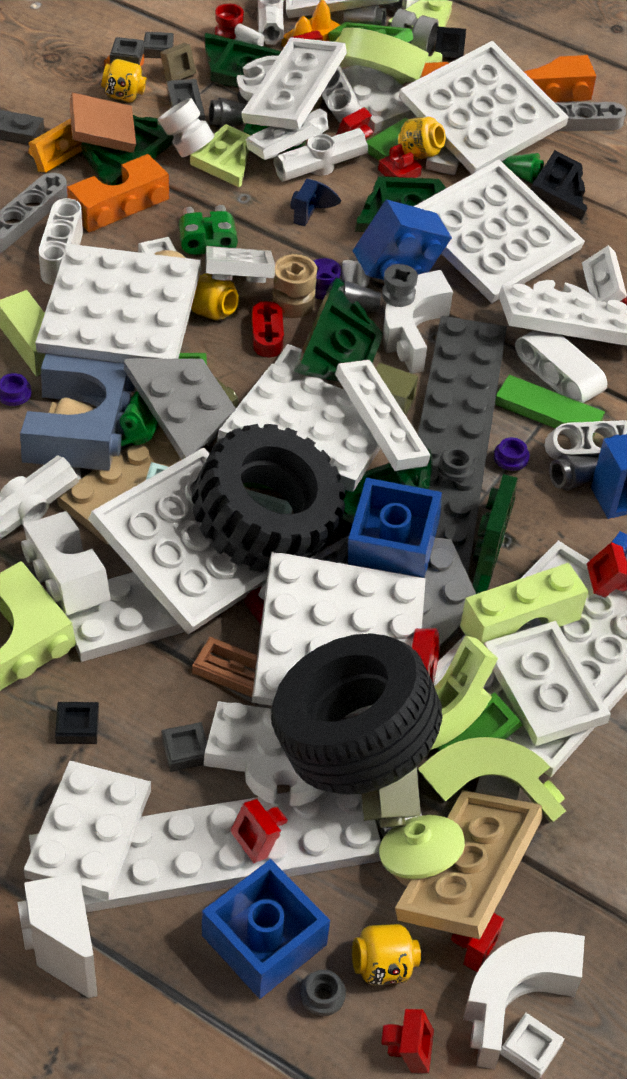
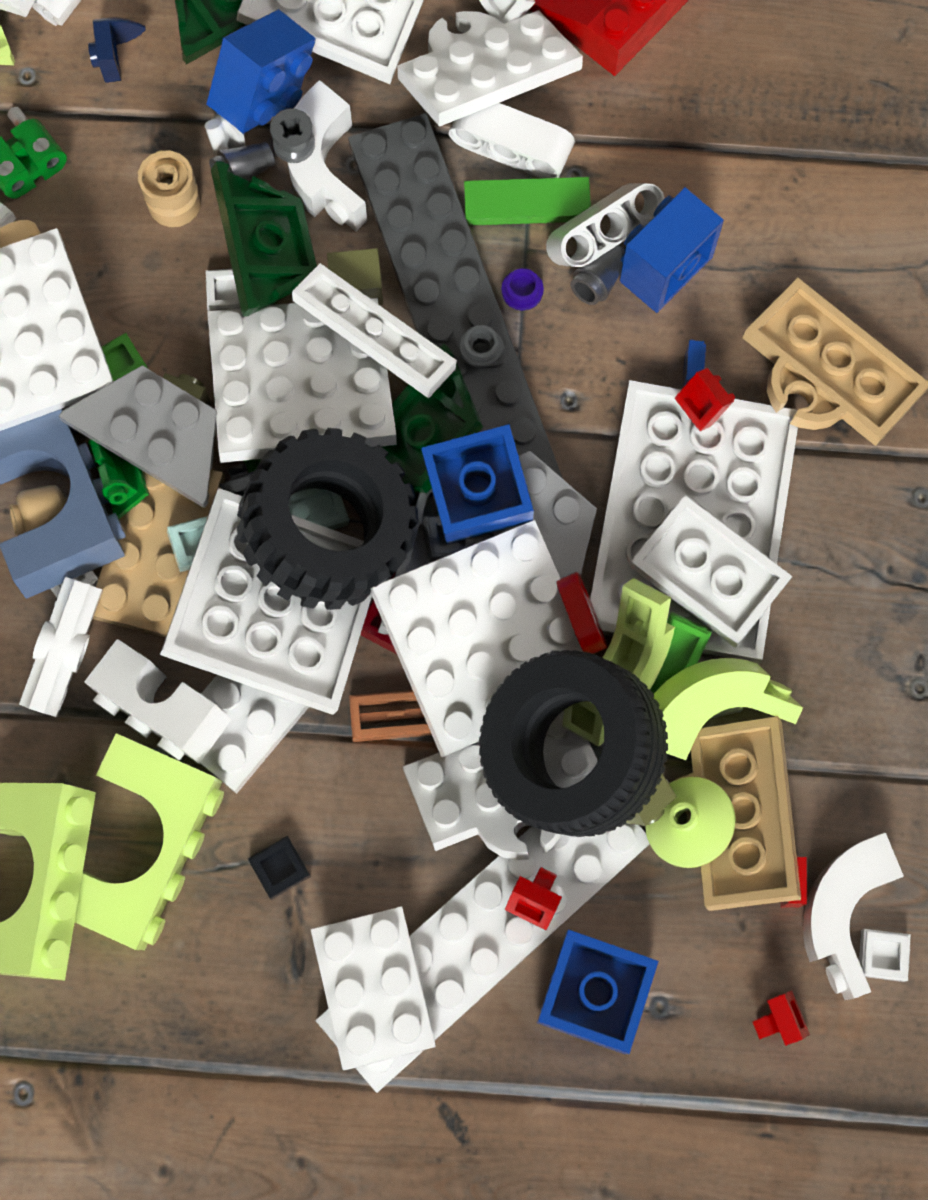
camera: 25 degrees left, 25 degrees up
(58, 931) = (417, 1112): white slope -> none
(184, 746) = (399, 832): dark grey tile -> none
(214, 298) = (91, 251): yellow head -> none
(226, 262) = (93, 194): white plate -> none
(261, 329) = (178, 255): red beam -> none
(326, 272) = (190, 143): dark purple wheel -> none
(326, 981) = (691, 1010): dark grey plate -> none
(385, 954) = (715, 949): yellow head -> none
(493, 530) = (568, 425): dark green wing -> none
(547, 595) = (646, 496): yellowish green arch -> none

